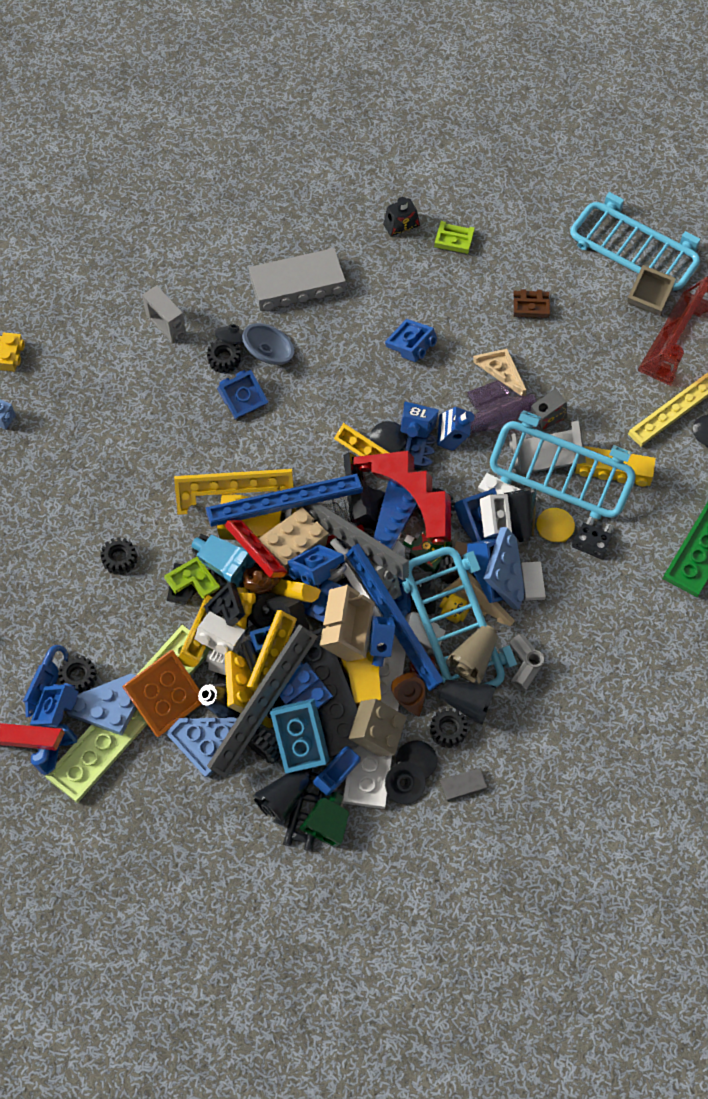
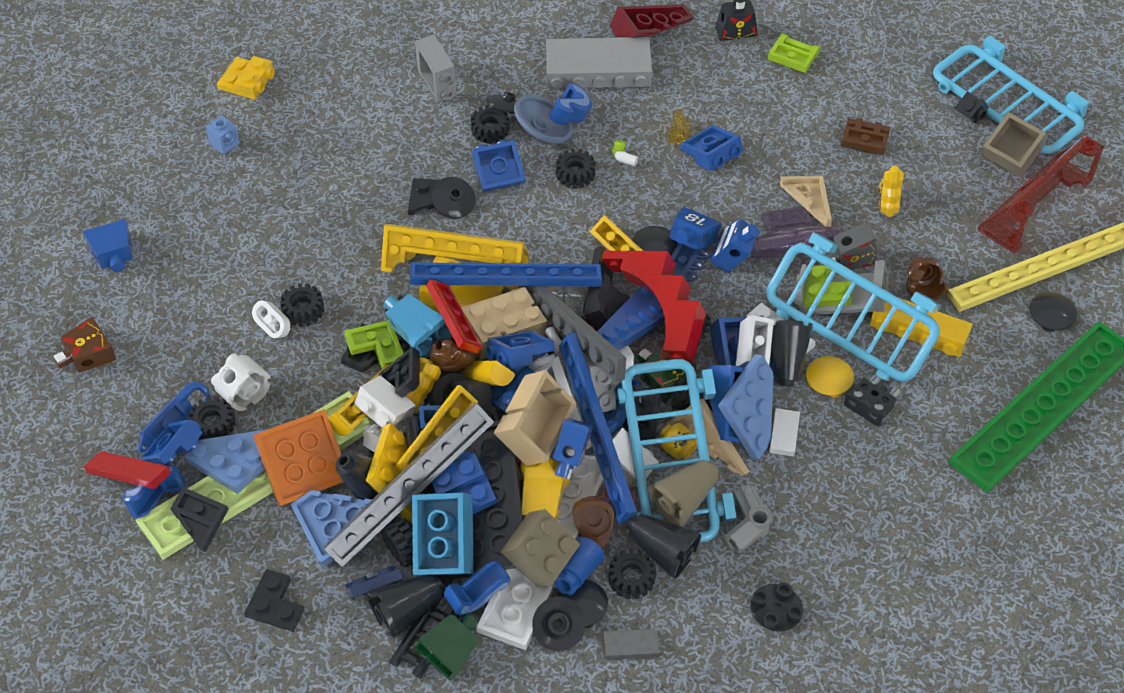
camera: 15 degrees right, 10 degrees down
(93, 637) = (241, 381): none -> white brick
(97, 762) = (199, 516): none -> black wing
(98, 576) = (274, 322): none -> white plate
(174, 822) = (269, 606): none -> black plate
(193, 430) = (421, 195): none -> black wing
(210, 438) = (452, 206): none -> black dish
(253, 784) = (364, 584): none -> dark blue plate
(289, 327) = (572, 106): none -> blue animal
(306, 392) = (575, 177): none -> black tyre
(328, 231) = (648, 20): none -> dark red wedge
(339, 362) = (621, 154): none -> white arm
(382, 328) = (680, 128): none -> clear yellow bracket
(410, 733) = (580, 566): none -> blue plant
(529, 448) = (833, 293): none -> lime plate
(564, 354) = (890, 191): none -> yellow rock
(564, 728) = (776, 607): none -> black dish
(608, 426) = (925, 277): none -> reddish brown hair
(609, 260) = (972, 107): none -> black bracket

